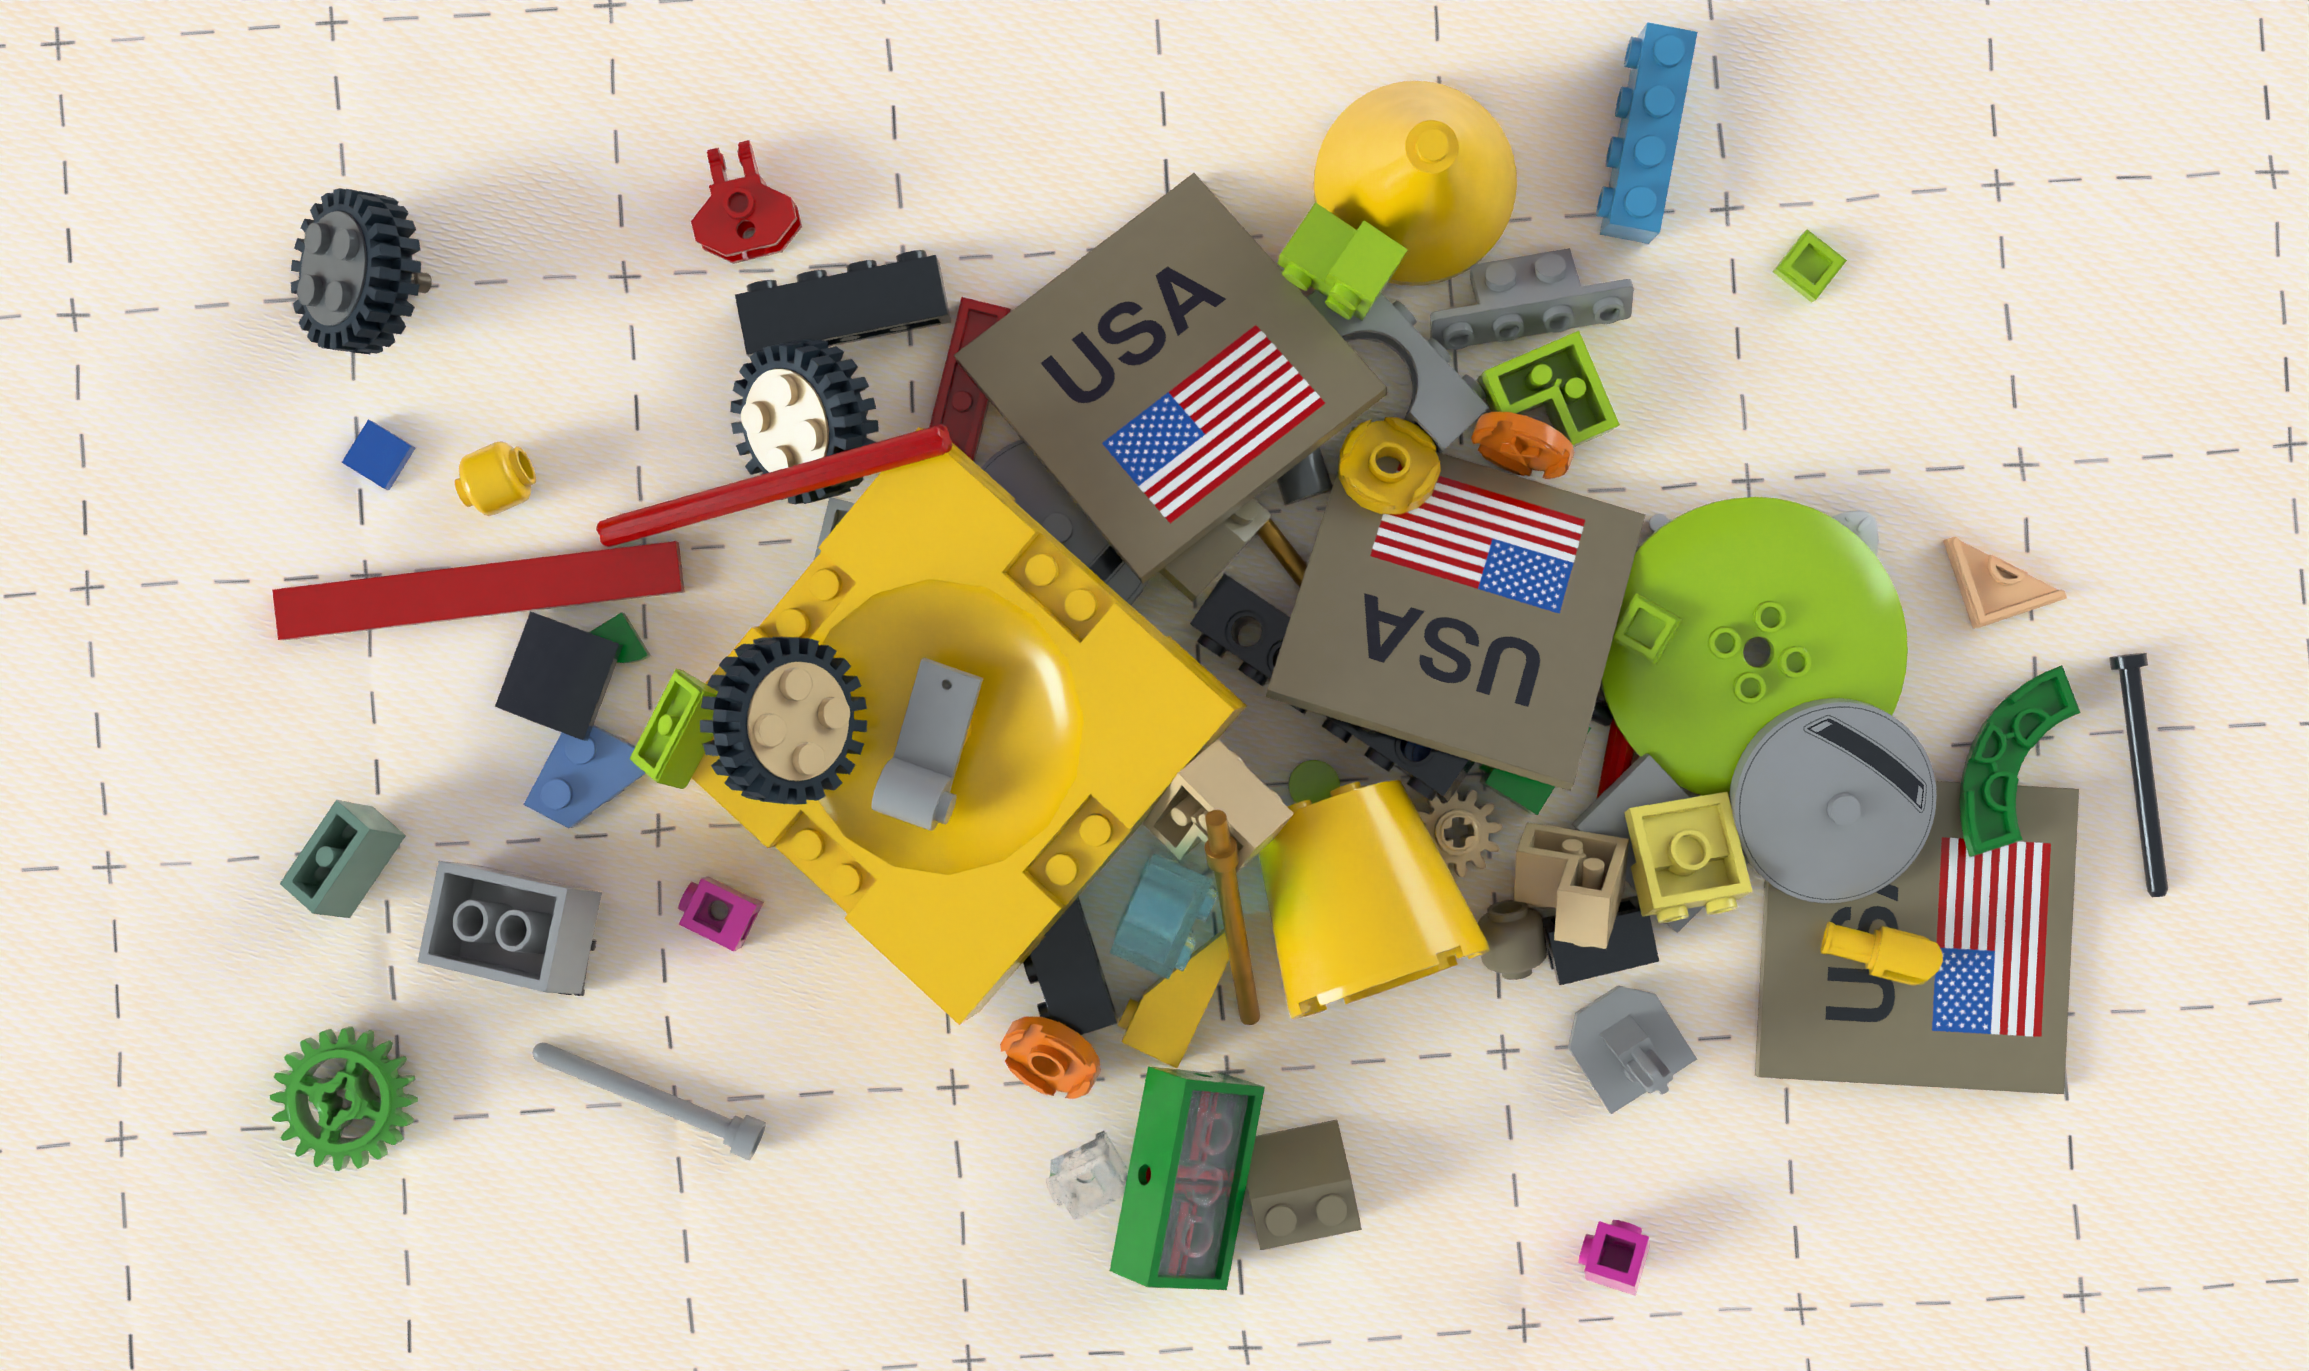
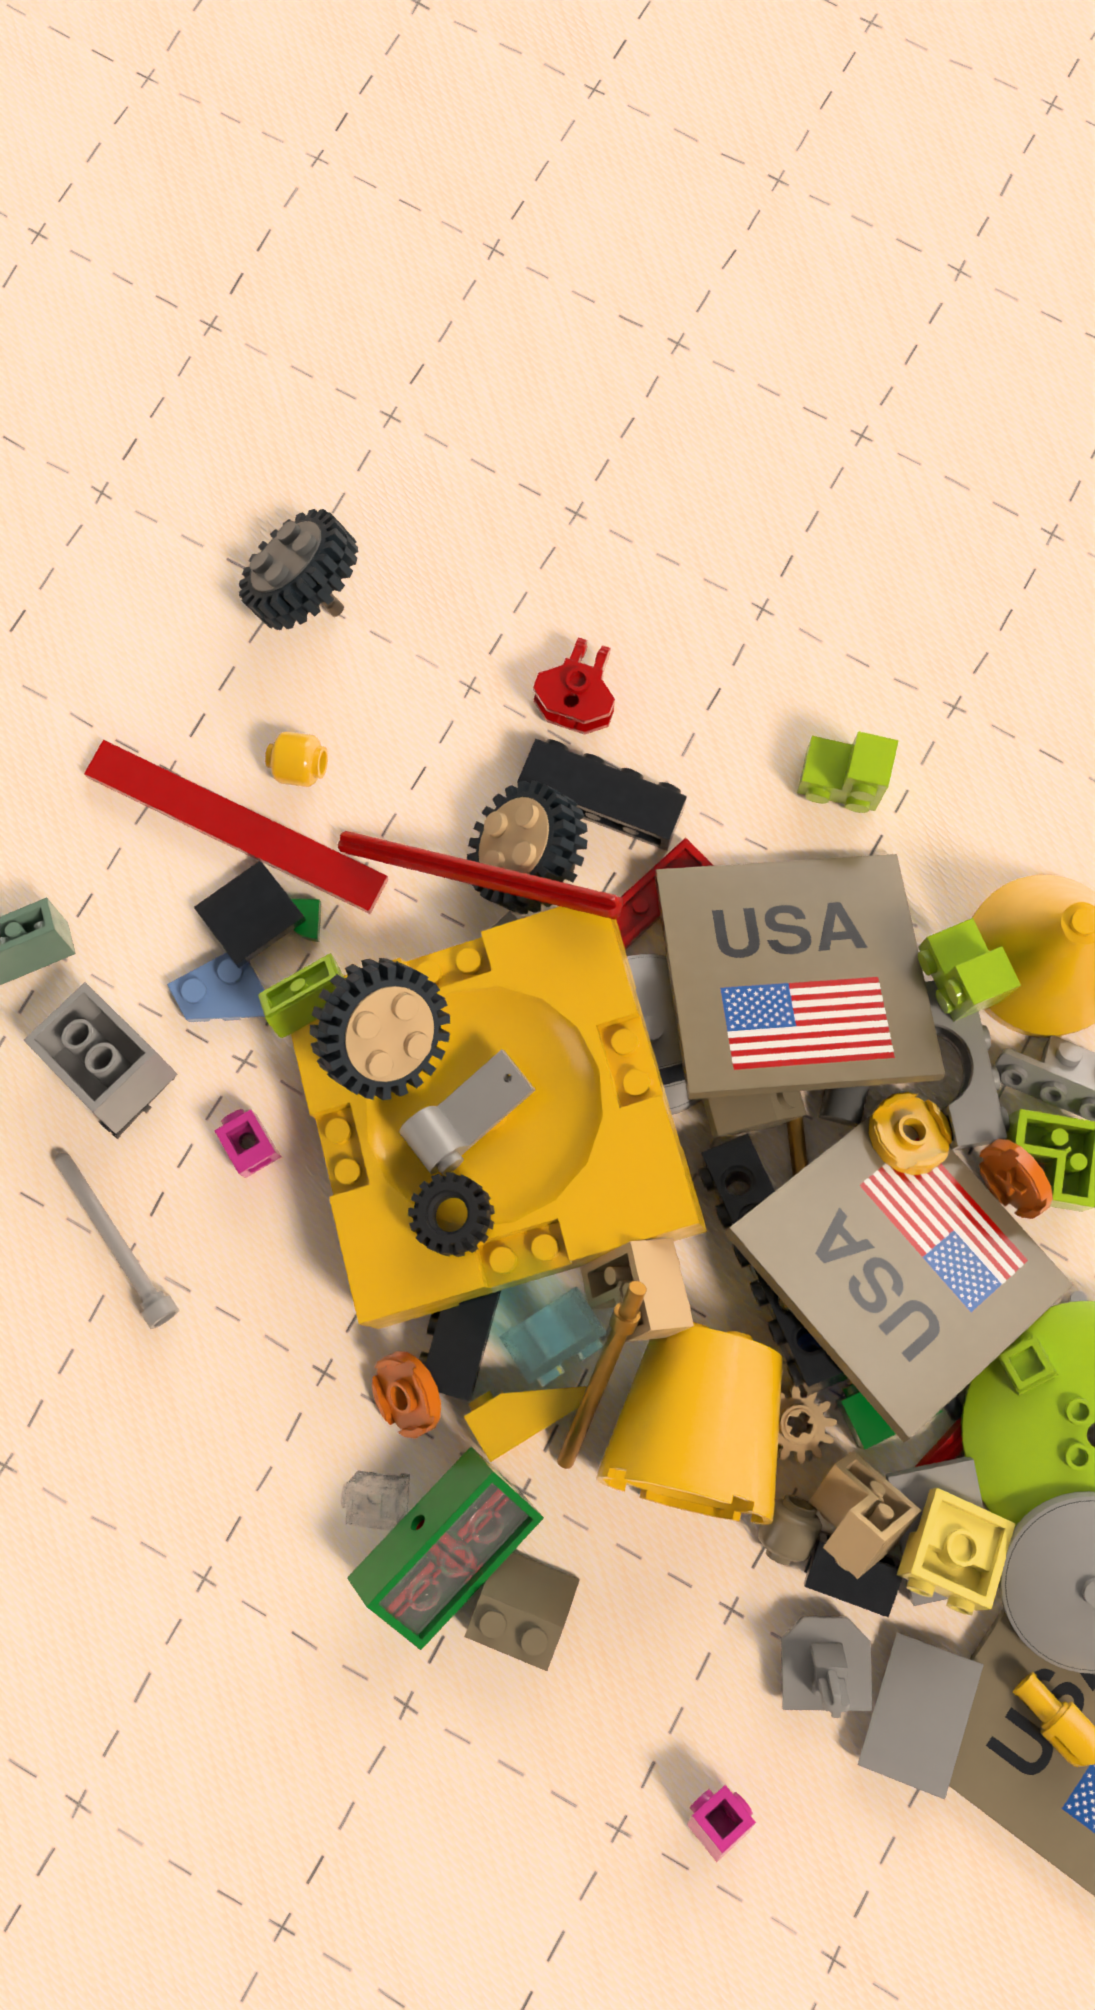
camera: 35 degrees right, 10 degrees down
(378, 455) = (232, 698): blue tile -> none
(950, 866) = (425, 1211): none -> black tyre
(1087, 118) = (848, 772): none -> lime brick
(1312, 781) = (717, 1317): lime tile -> none
(1746, 1032) = (920, 1715): none -> light grey tile

